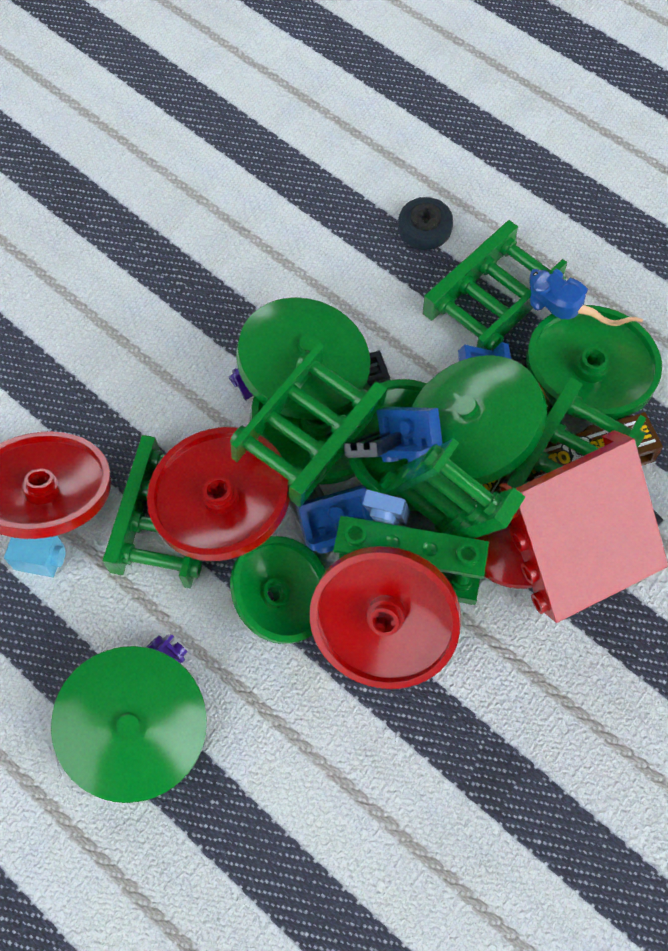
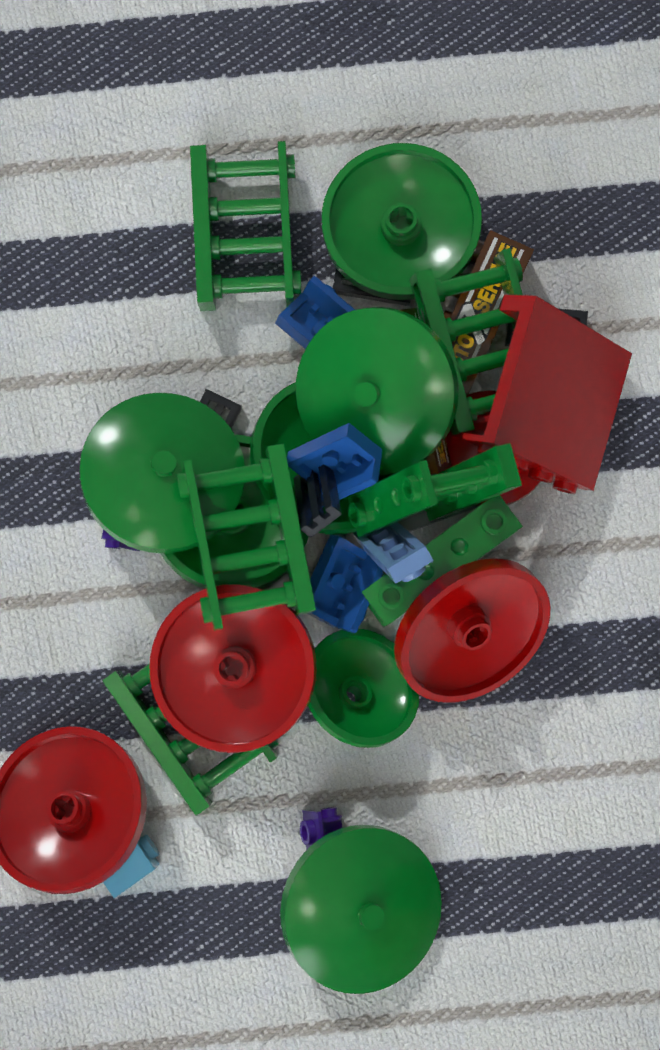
camera: 50 degrees left, 20 degrees up
(436, 225) = (118, 231): black wheel -> none
(564, 297) = (323, 187): blue animal -> none

